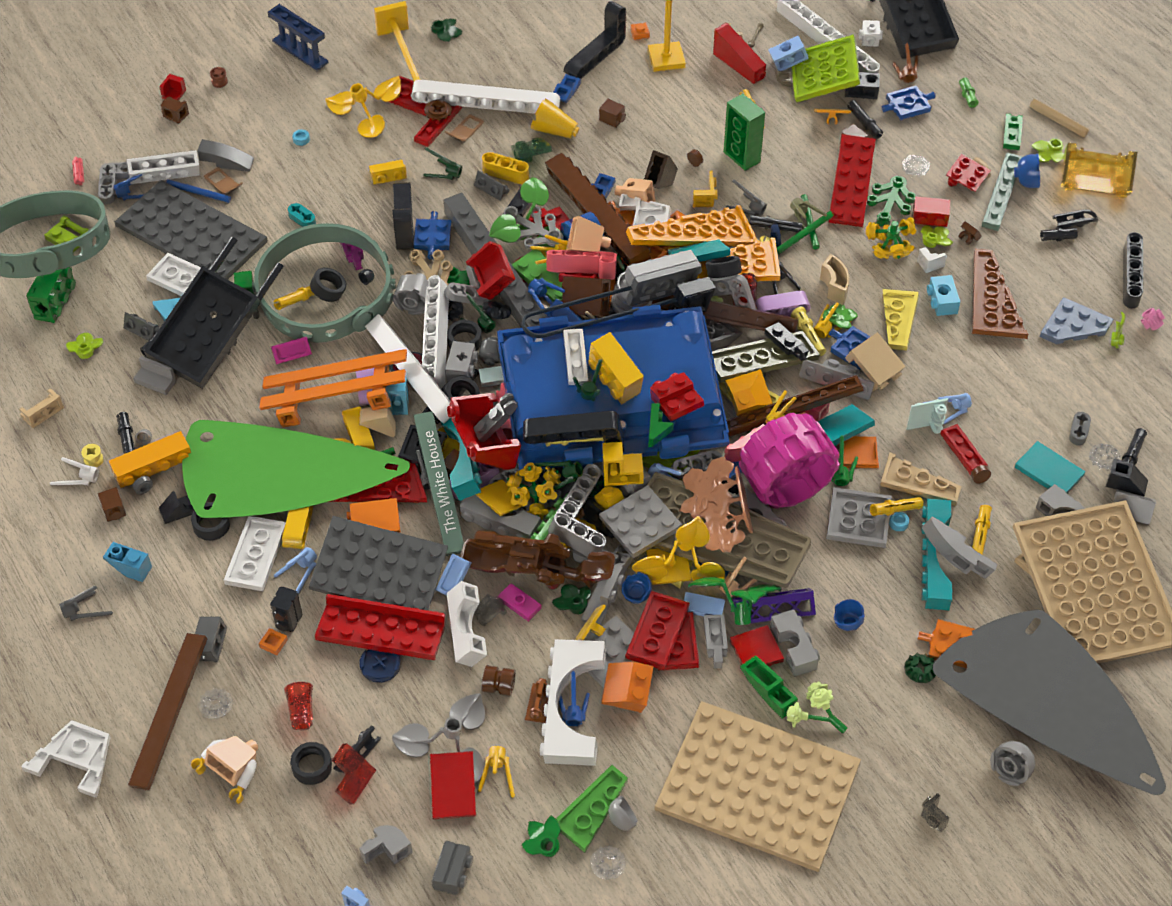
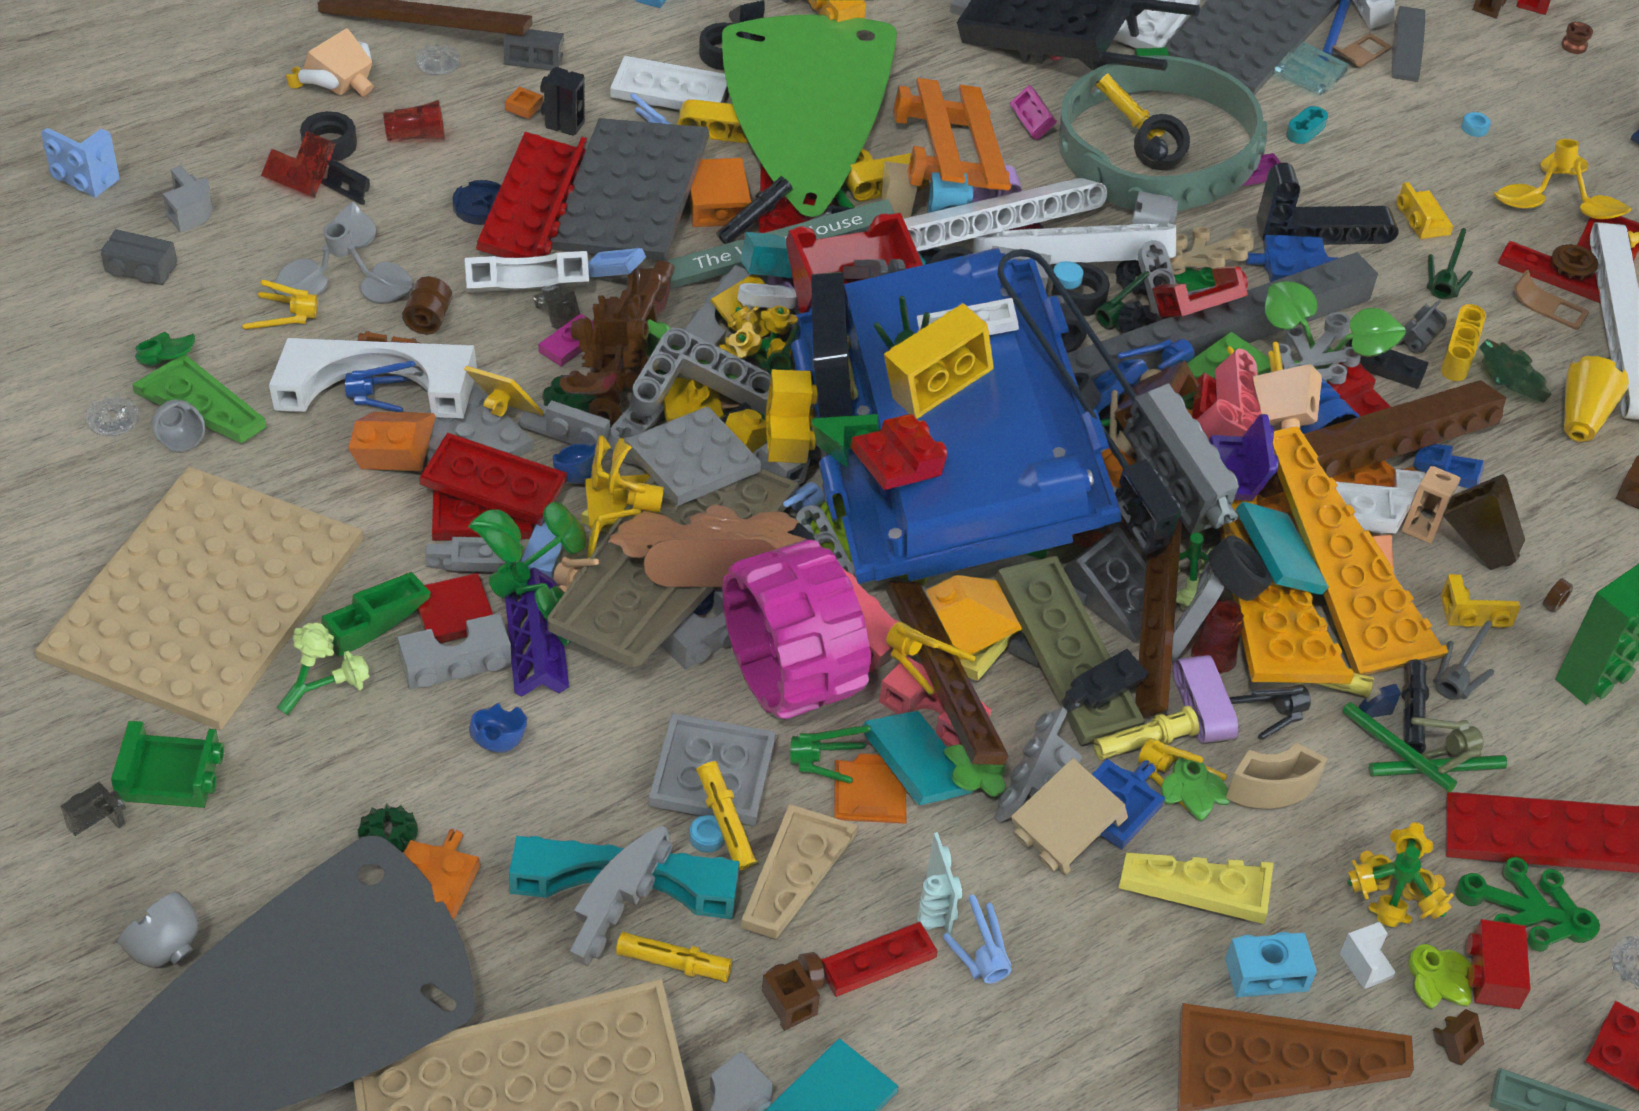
camera: 85 degrees right, 5 degrees down
(244, 207) = (1311, 69): none -> clear light blue slope
(403, 499) = (763, 203): none -> black pin
(453, 785) = (265, 258): red tile -> none
(465, 335) = (1069, 274): none -> medium azure tile
(498, 483) = (766, 296): none -> white plate
(646, 247) = (1249, 457): none -> dark purple bracket
(848, 403) = (975, 776): none -> bright green plate
(896, 780) = (166, 768): none -> green panel
(996, 481) = (790, 994): none -> reddish brown brick

